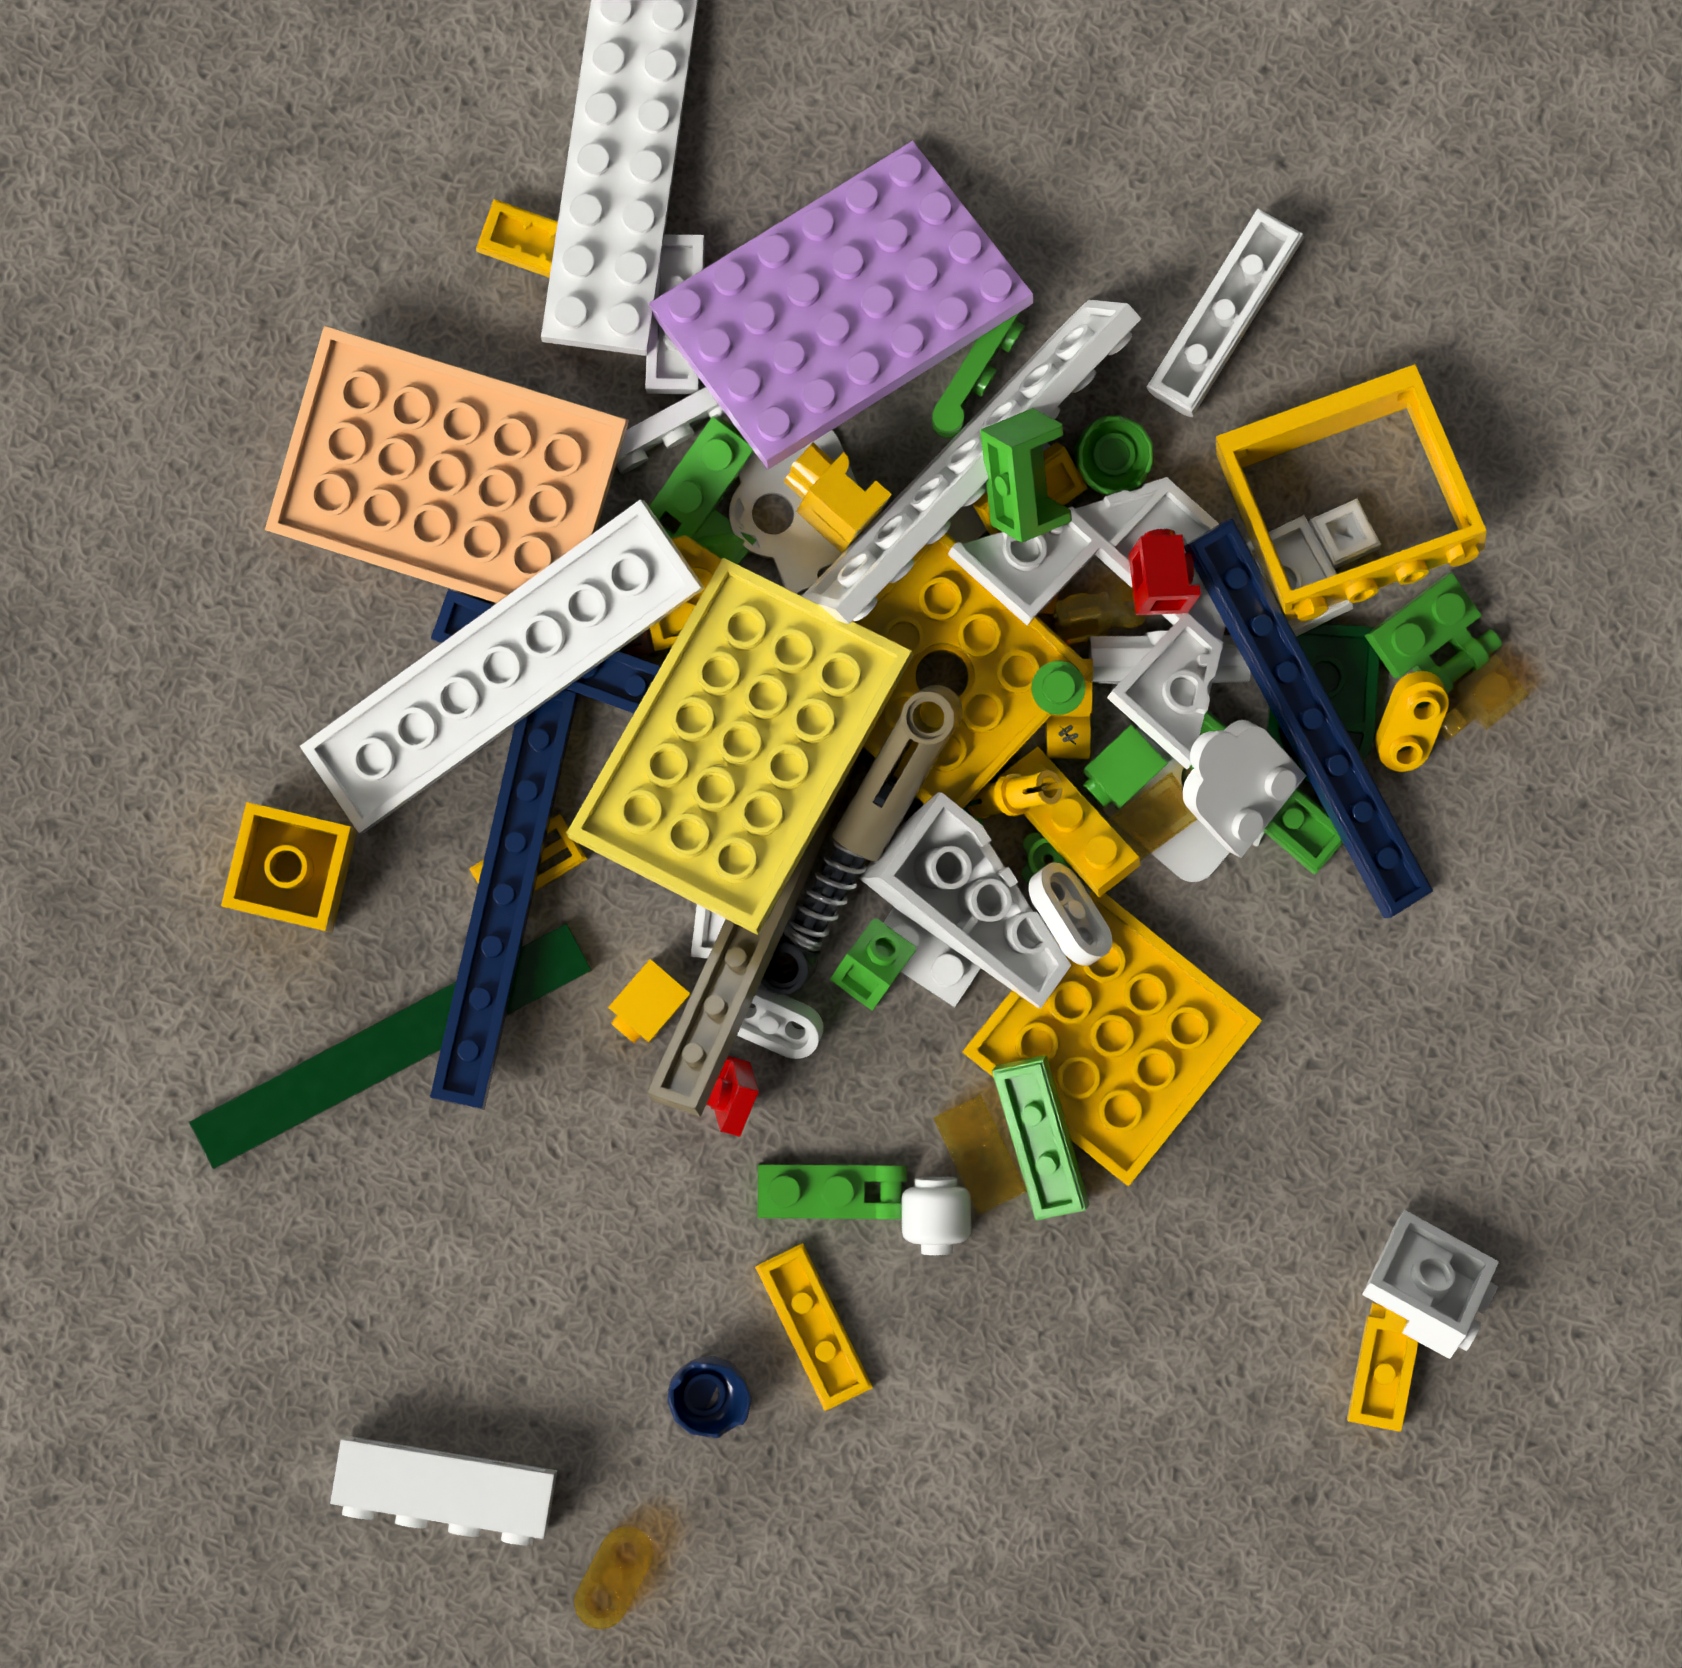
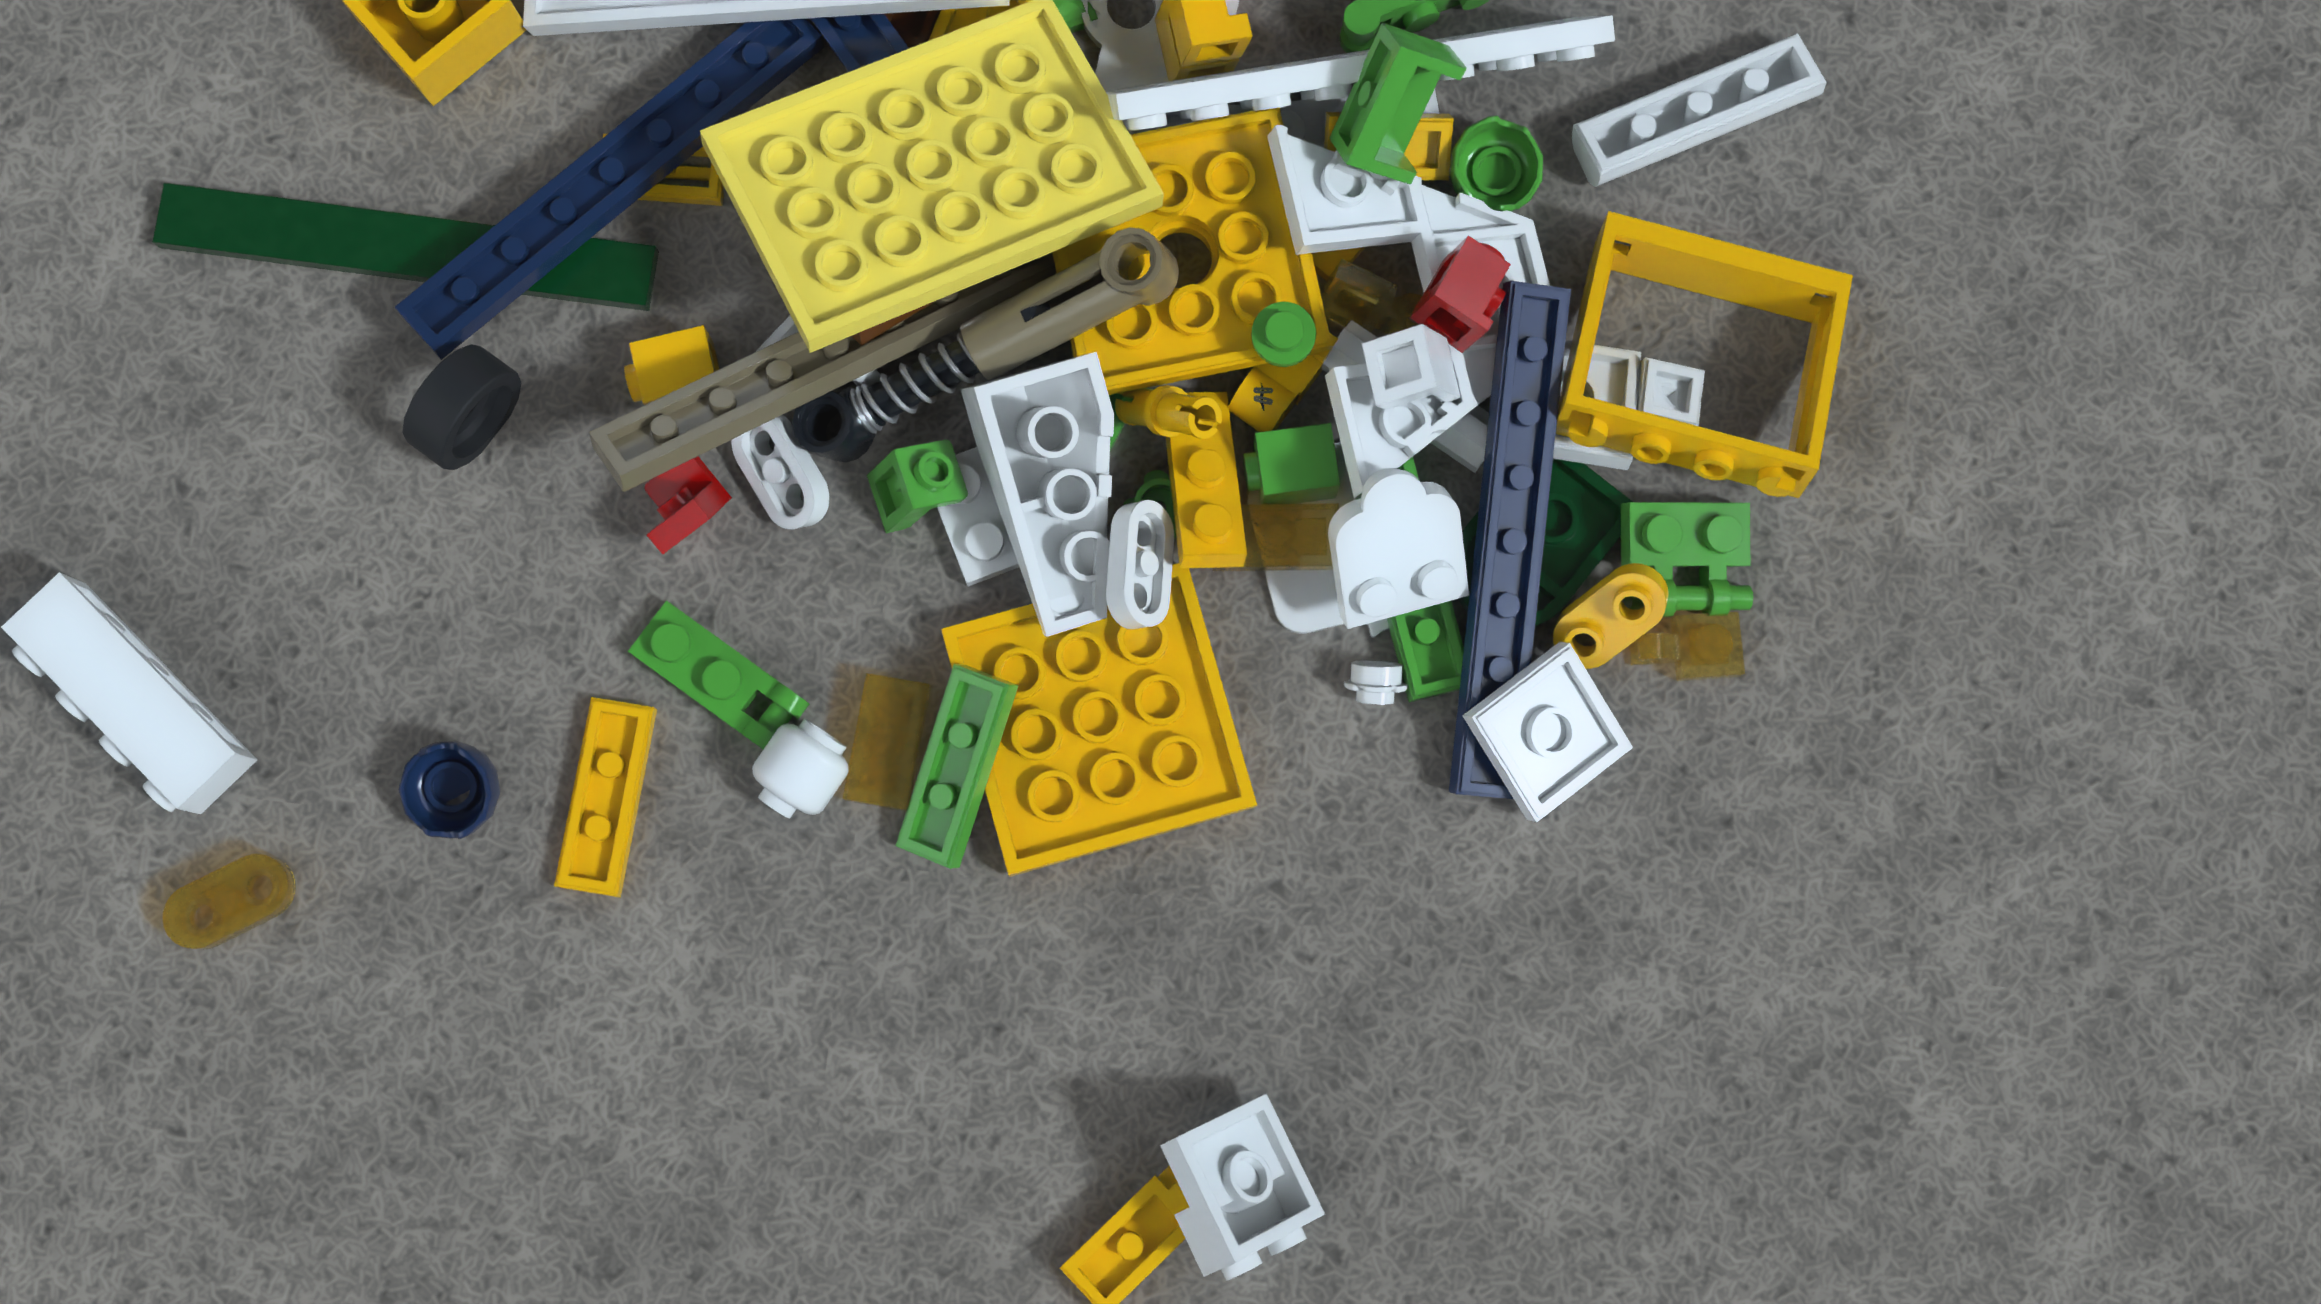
camera: 30 degrees right, 5 degrees down
(524, 1132) = (461, 407): none -> black tyre
(1165, 655) = (1410, 367): none -> white panel
(1282, 877) = (1375, 681): none -> white plate
(1423, 831) = (1547, 731): none -> white tile

